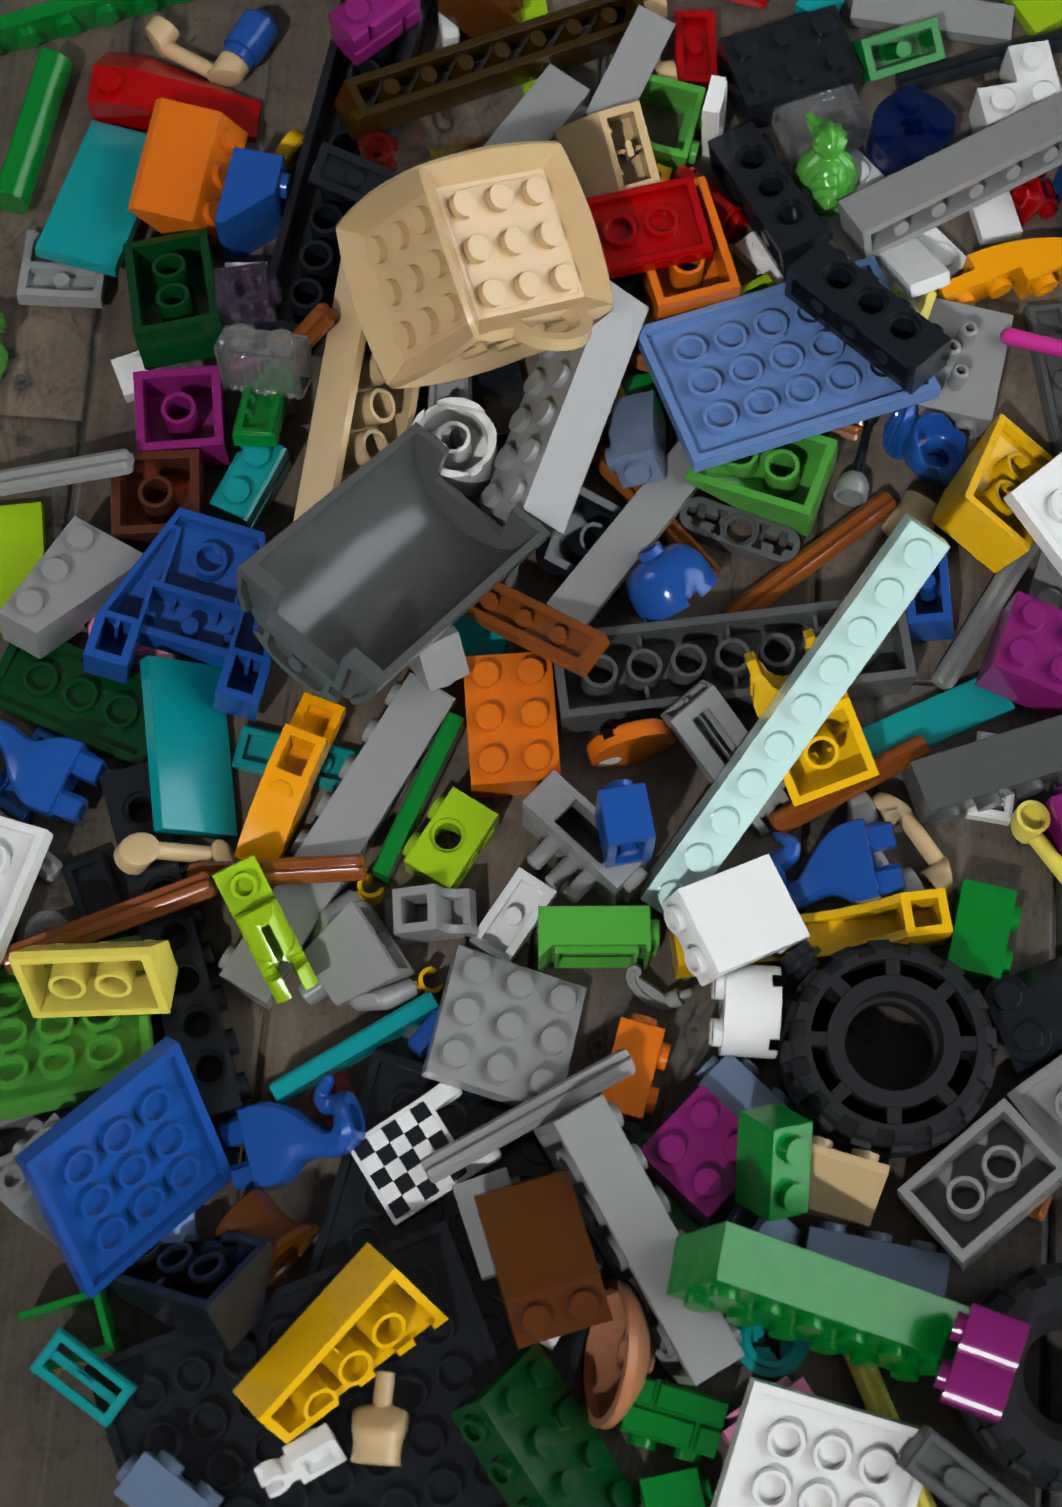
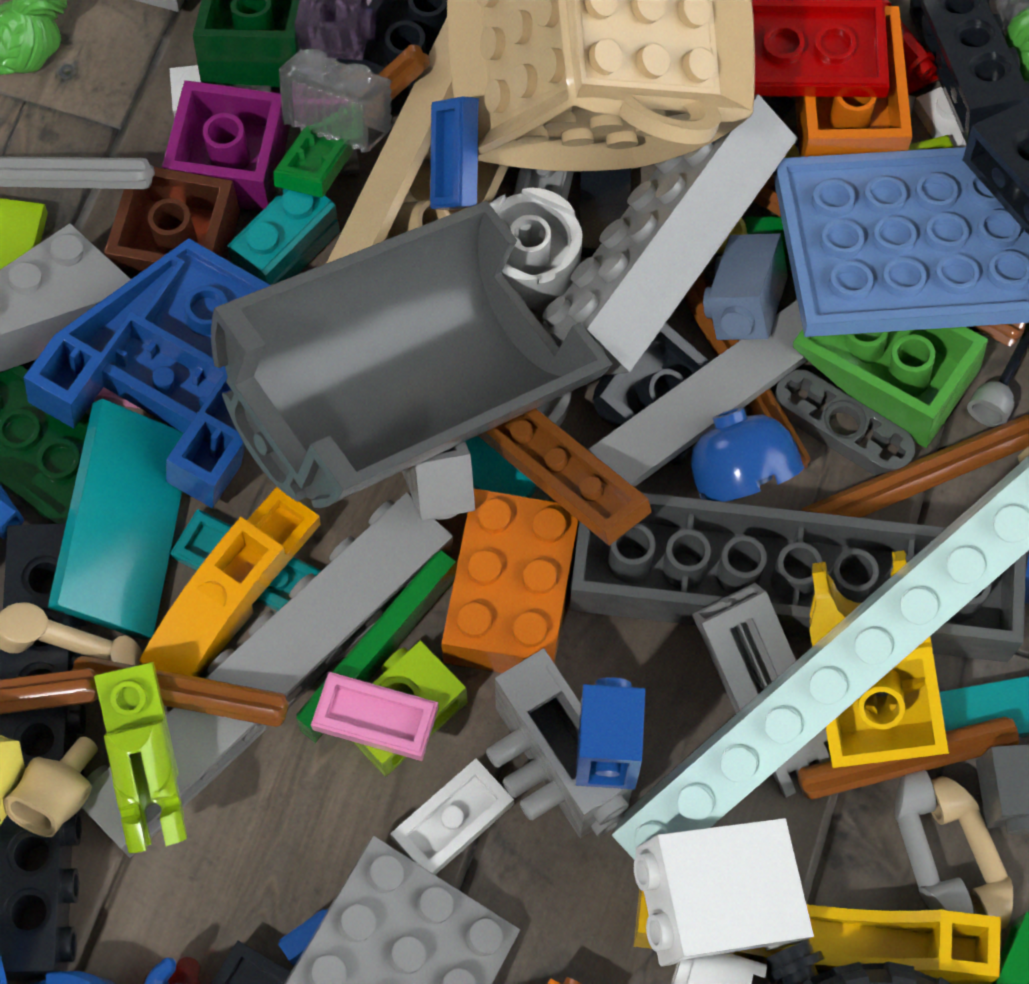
camera: 15 degrees right, 5 degrees down
(201, 972) = (51, 790): none -> tan piece
(354, 1049) = (211, 933): teal tile -> none
(359, 958) = (250, 821): light grey torso -> none
(380, 389) = (454, 153): none -> blue tile
(430, 914) = (352, 789): light grey brick -> none
(434, 853) = (375, 716): none -> bright pink tile
(596, 936) = (543, 868): bright green window -> none
(631, 743) = (649, 641): orange tile -> none
(651, 994) = (599, 959): light grey piece -> none
(841, 864) = (875, 855): blue hips -> none

